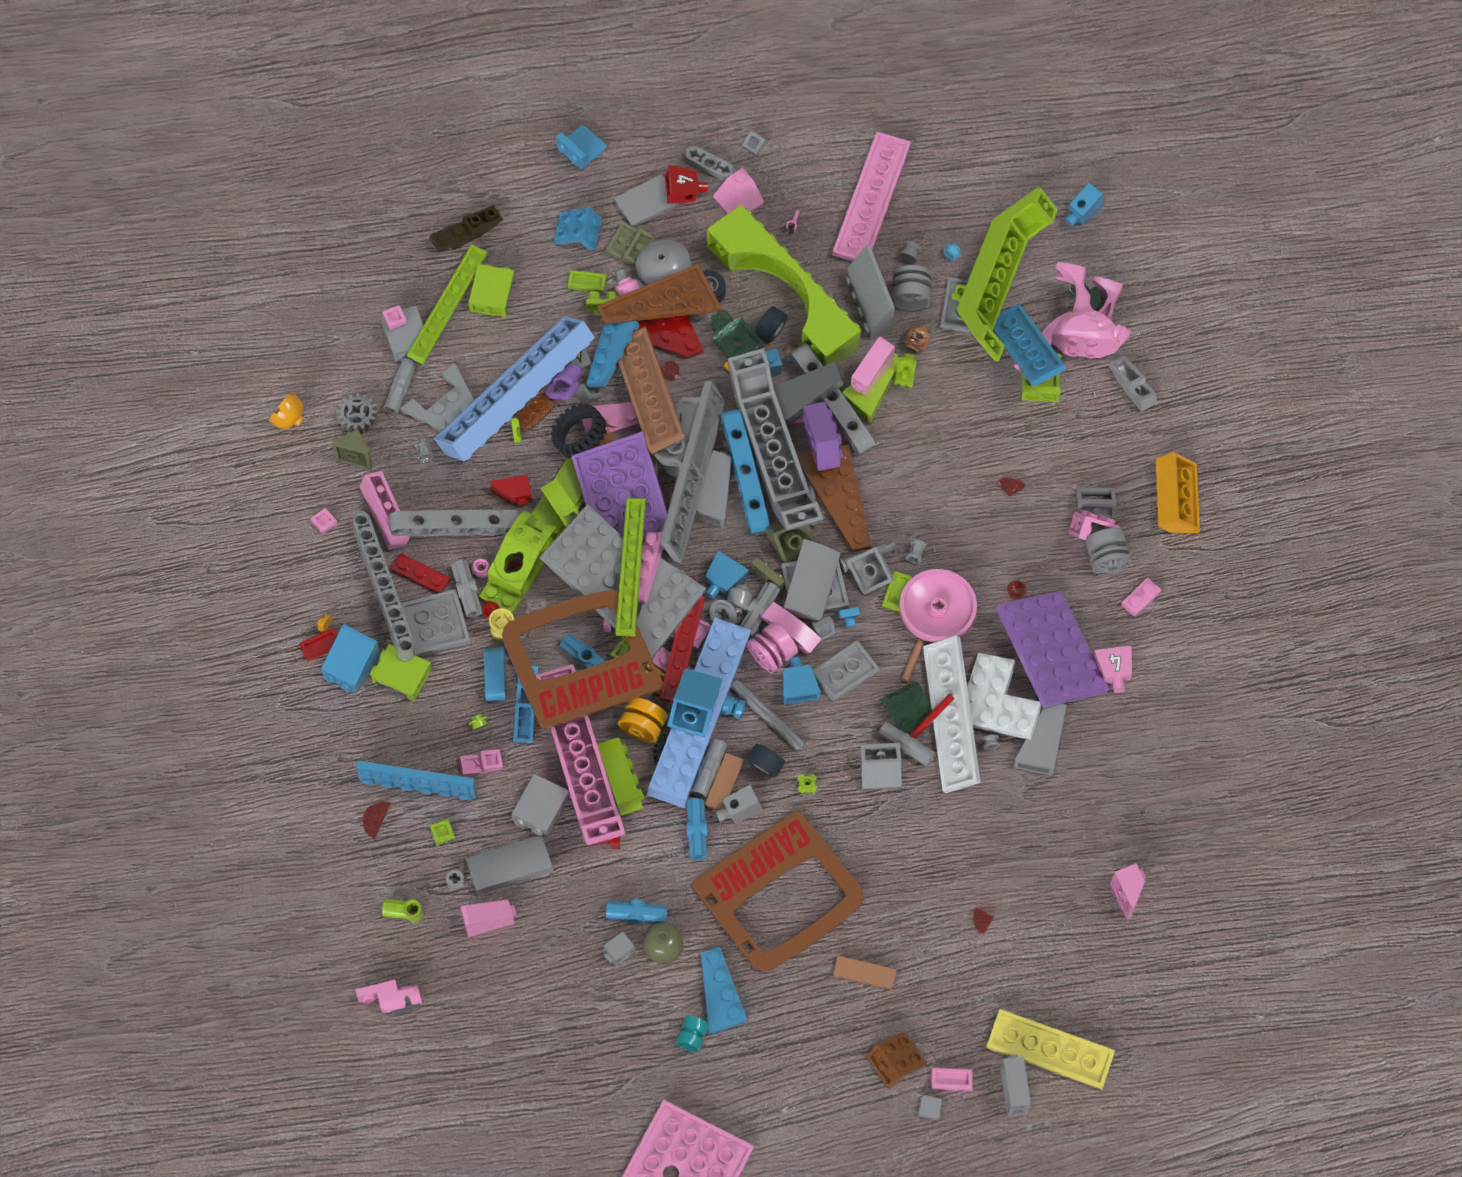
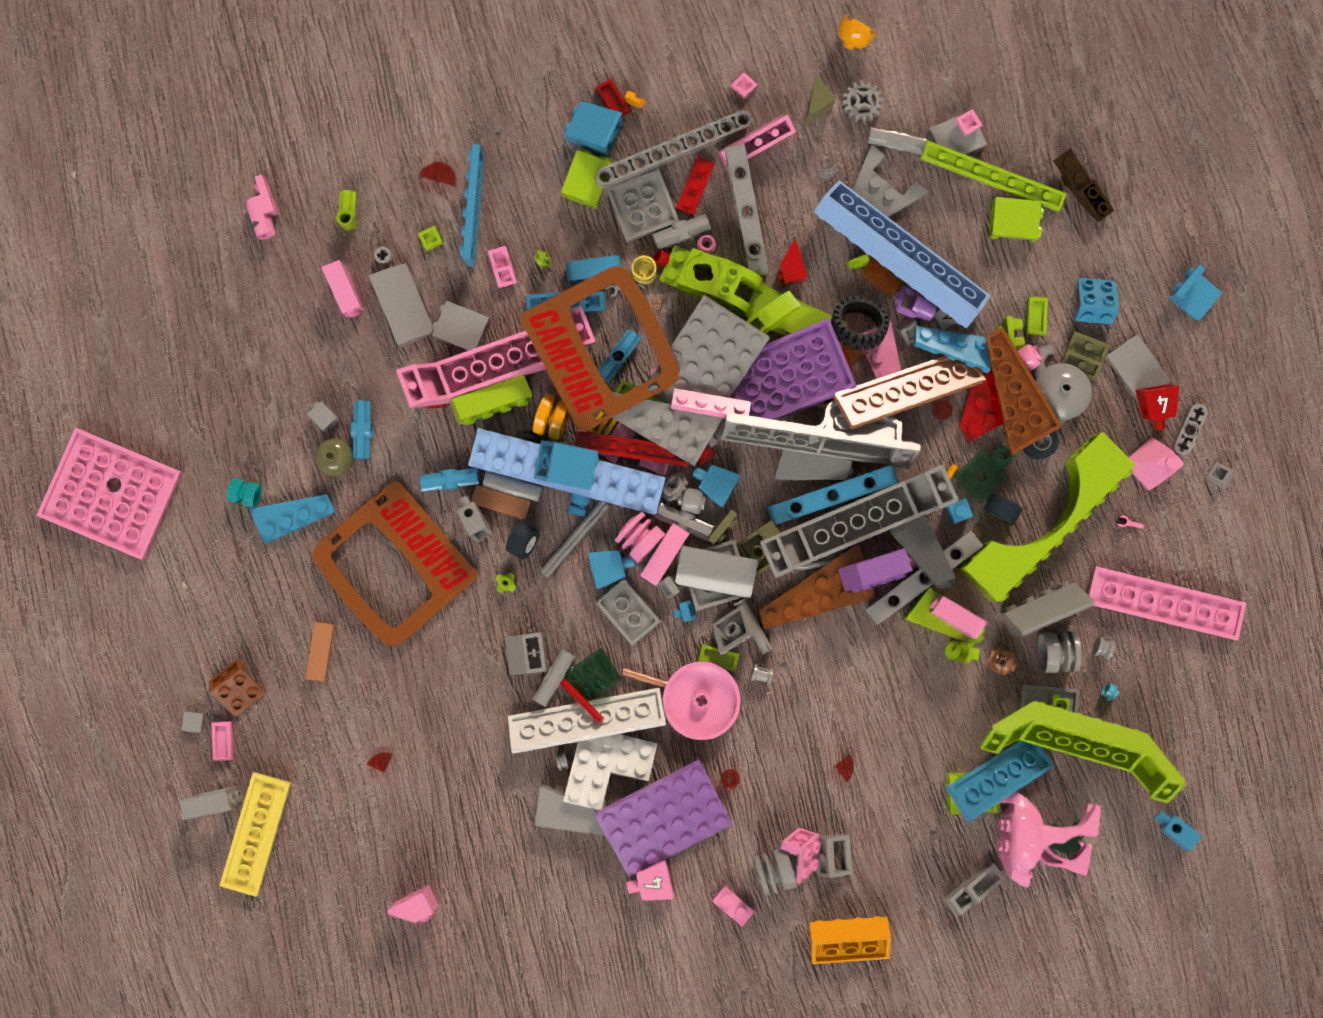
camera: 90 degrees right, 20 degrees up
(630, 567) = (706, 388): lime tile -> none

